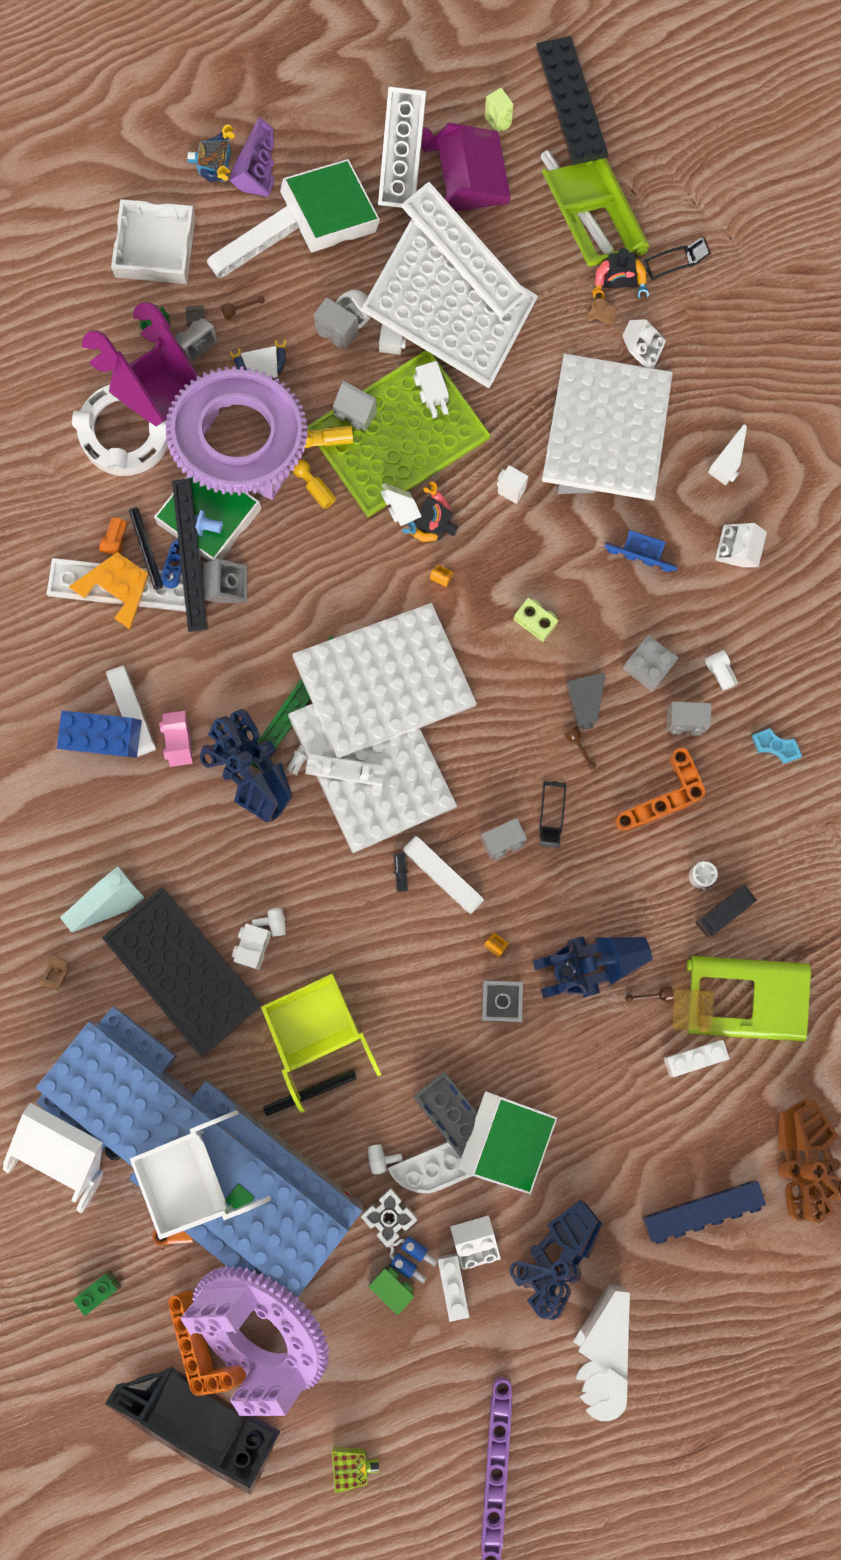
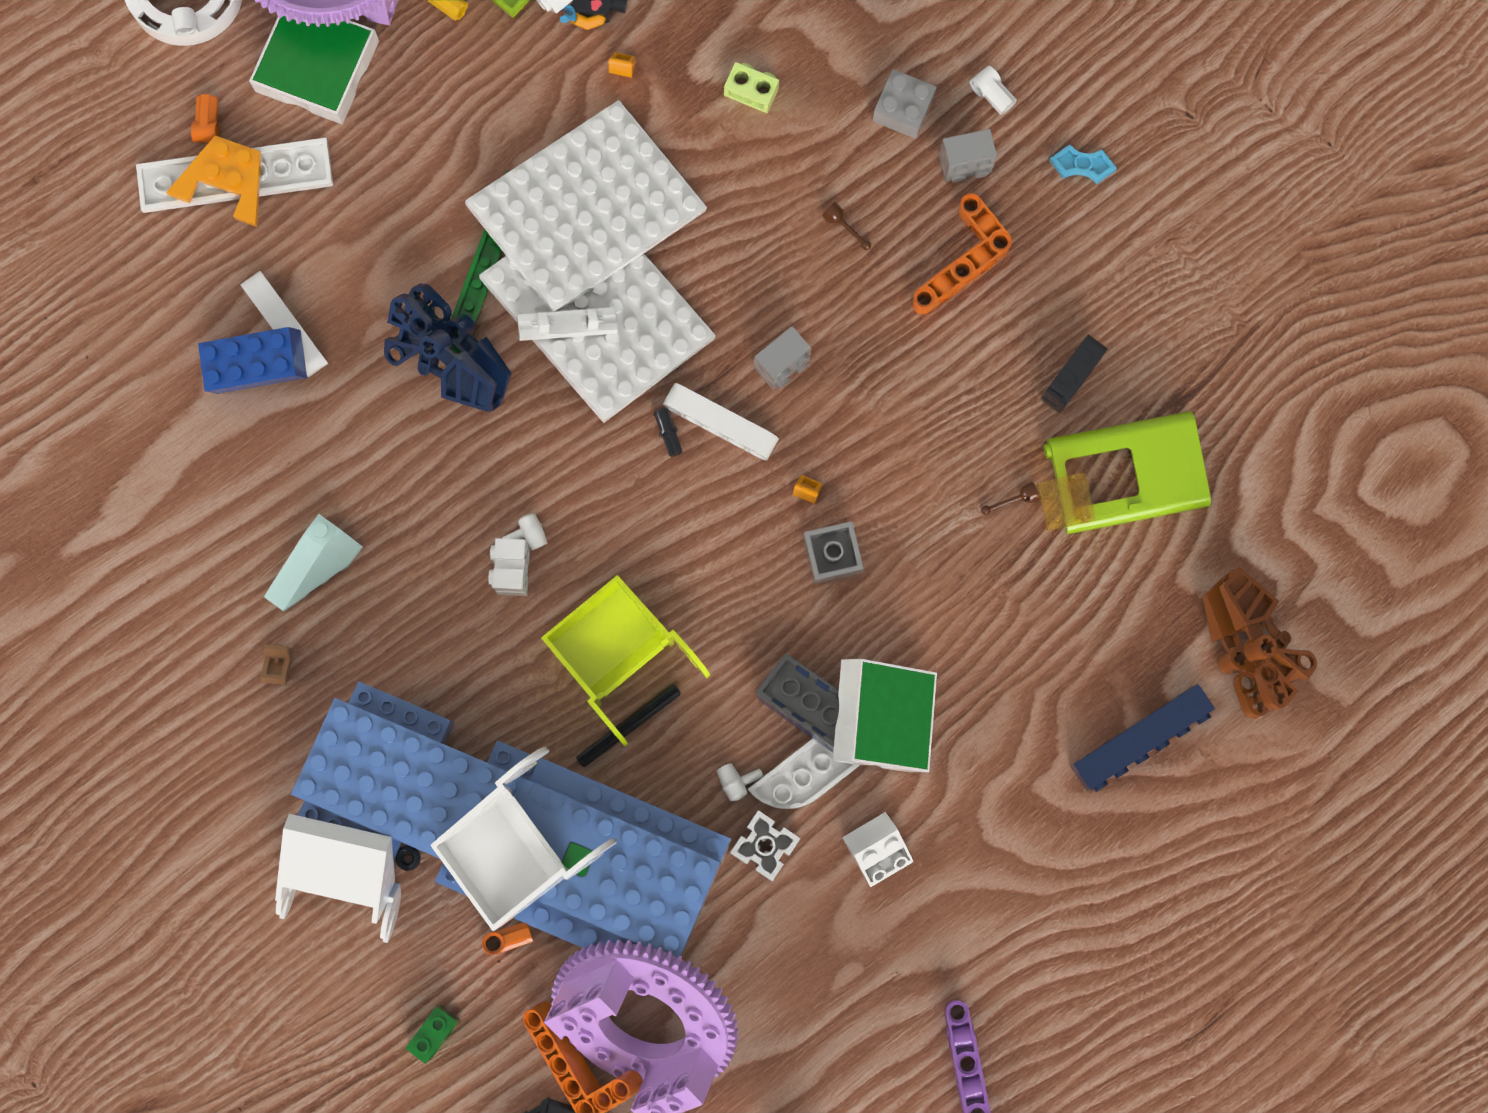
camera: 15 degrees left, 0 degrees up
(146, 548) = (249, 123): black axle -> none
(168, 569) = (286, 124): blue beam -> none
(177, 738) = (350, 342): bright pink brick -> none
(182, 971) = (432, 621): black plate -> none
(189, 555) = (306, 115): black tile -> none
(204, 523) = (311, 72): light blue bracket -> none
(225, 581) = (358, 138): light grey slope -> none
(297, 761) = (507, 326): white pin -> none
(392, 1290) = (791, 932): bright green brick -> none
(405, 1266) = (809, 878): blue piece -> none
(453, 1287) = (865, 908): white brick -> none
(549, 835) = (839, 341): black piece -> none
(577, 1233) = (998, 801): dark blue piece -> none
(585, 699) = (837, 166): dark grey slope -> none
(605, 1342) = (1068, 920): white piece -> none
(619, 956) = (961, 457): dark blue piece -> none
(696, 1058) = (1085, 558): white brick -> none
(703, 875) = (1035, 339): white piece -> none

